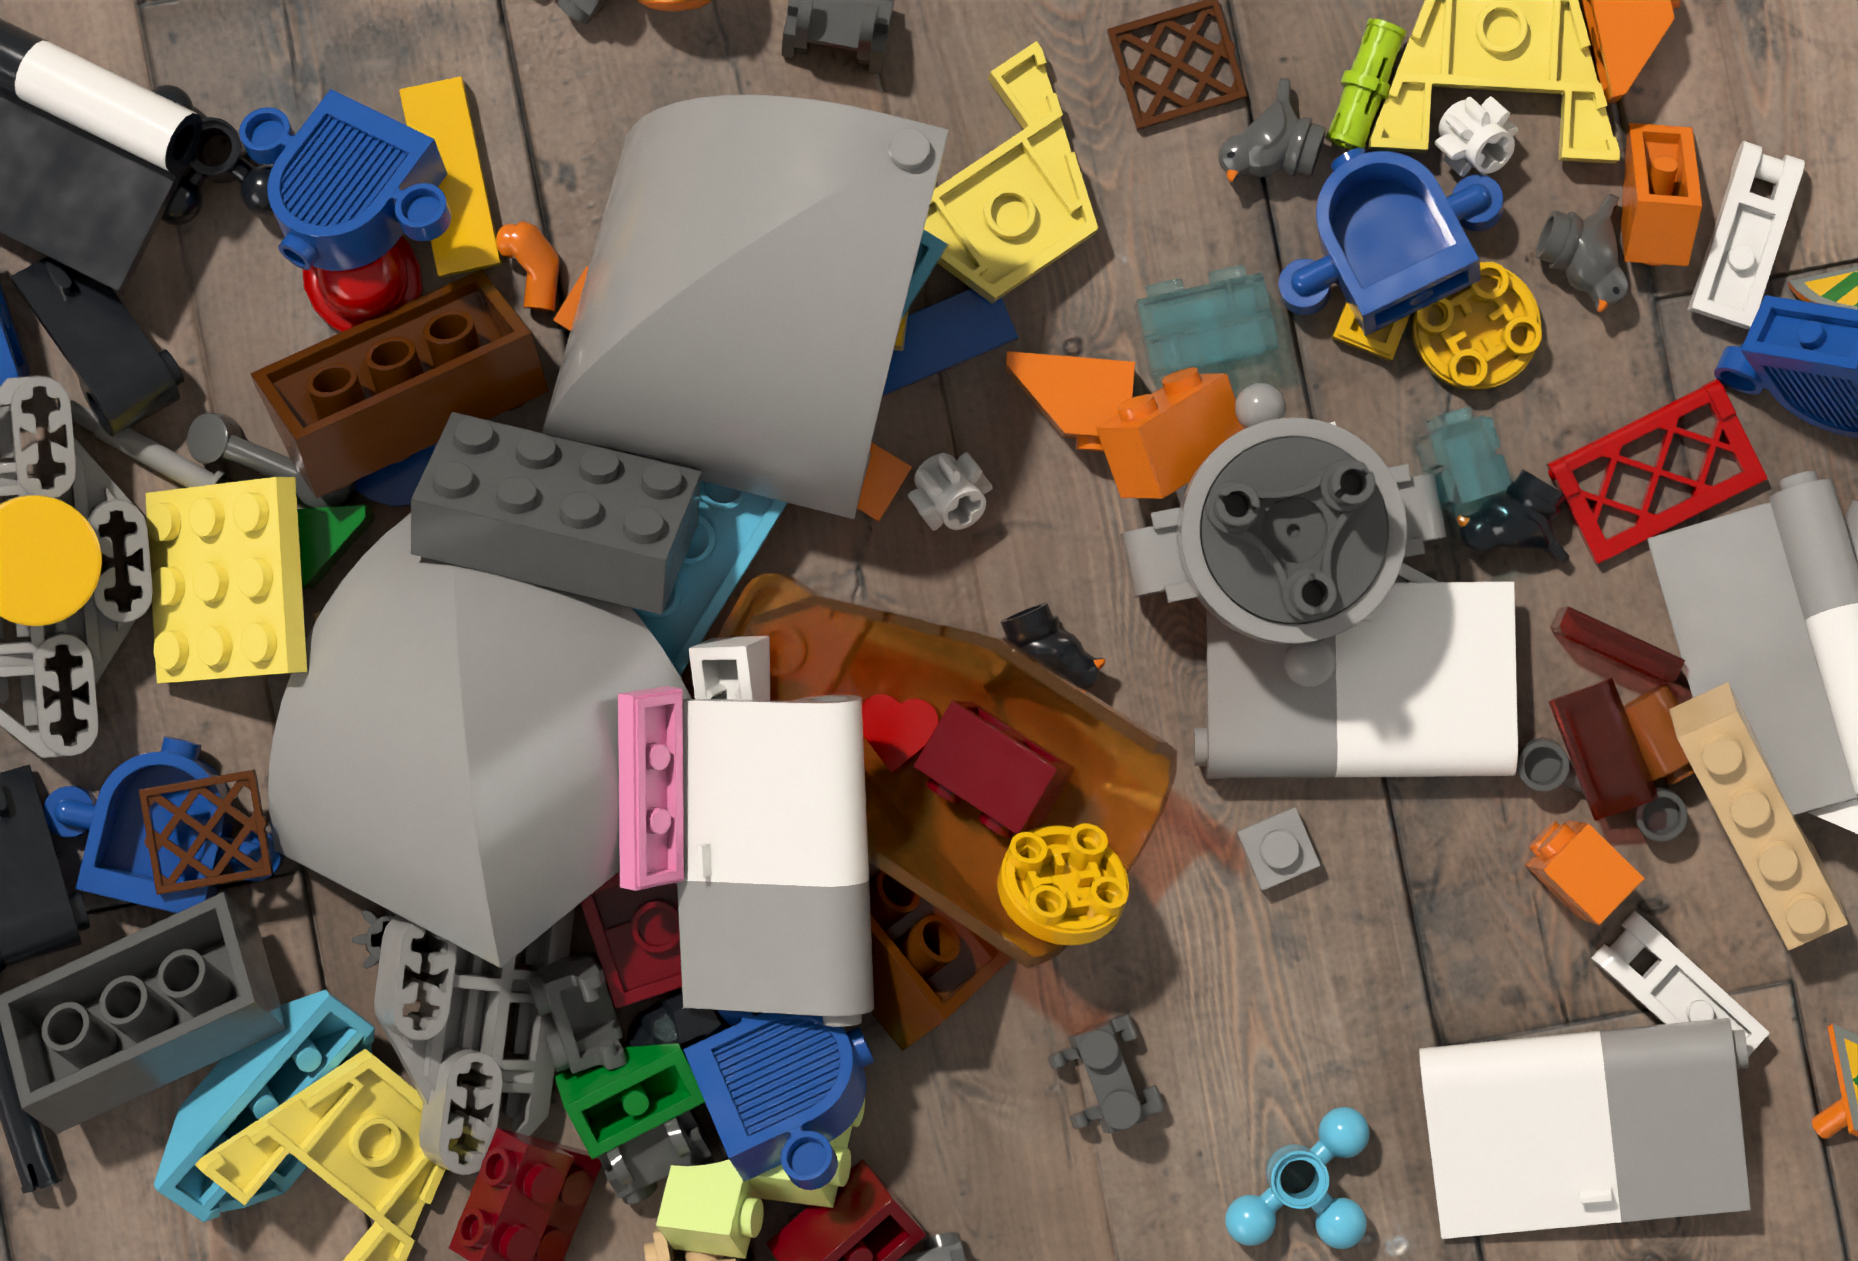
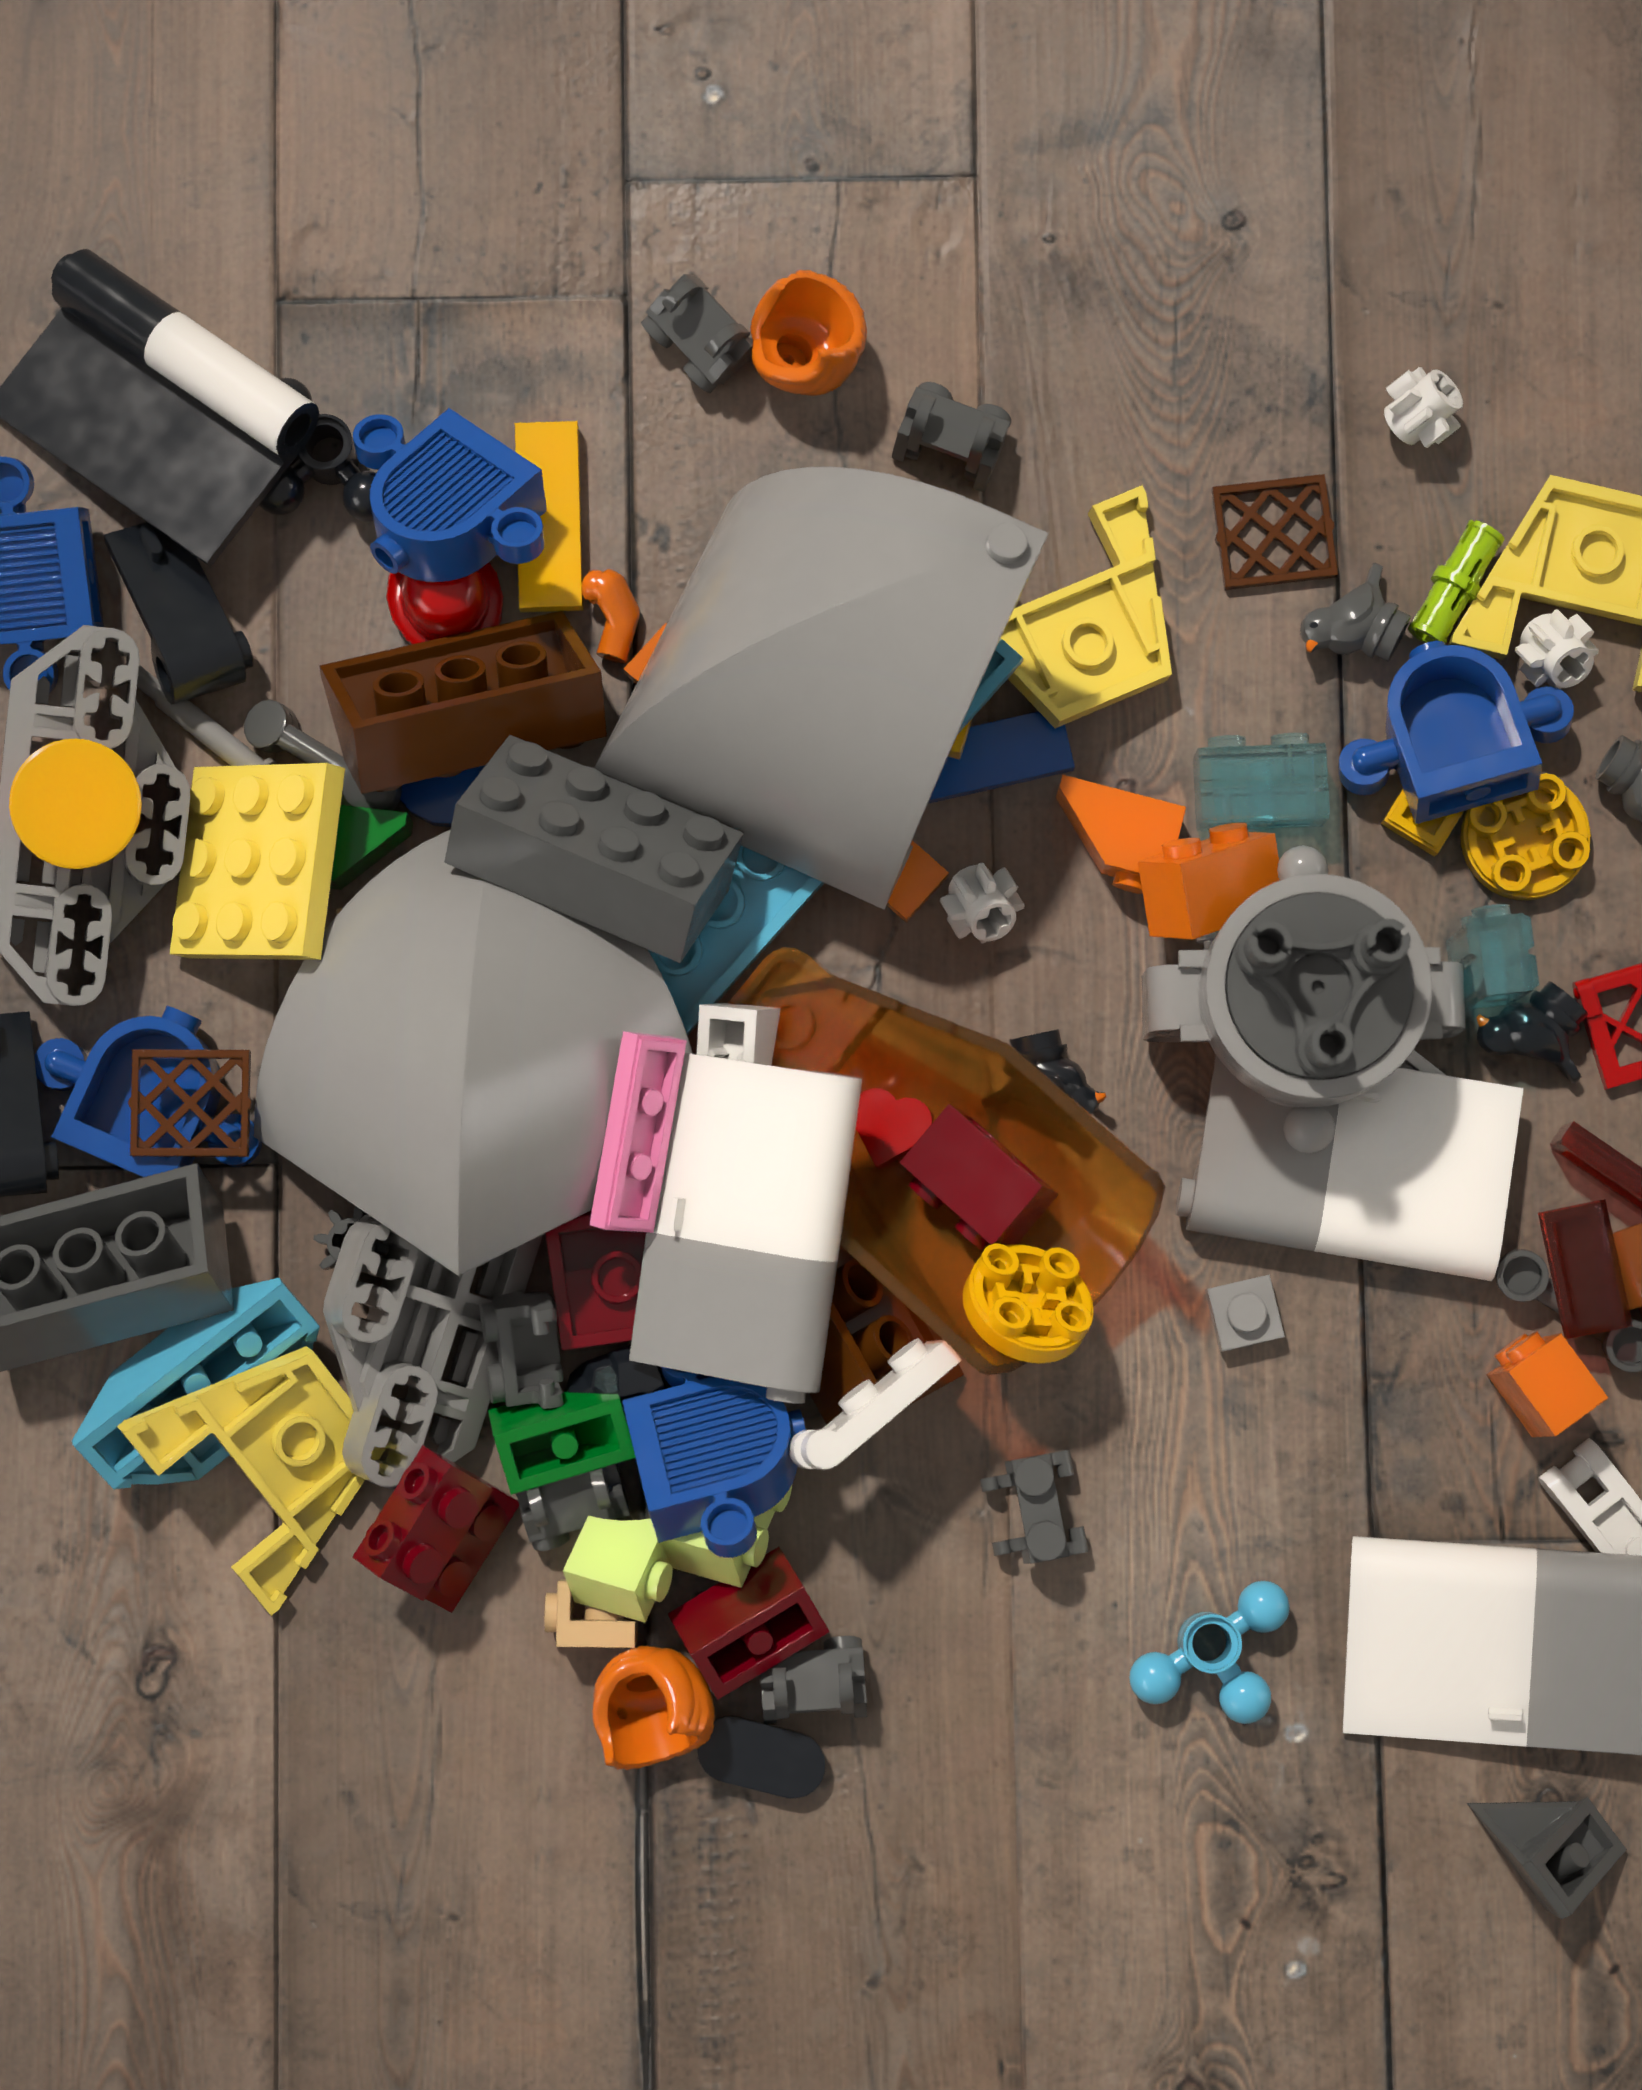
camera: 10 degrees right, 5 degrees down
(929, 1014) = (873, 1406): none -> white plate

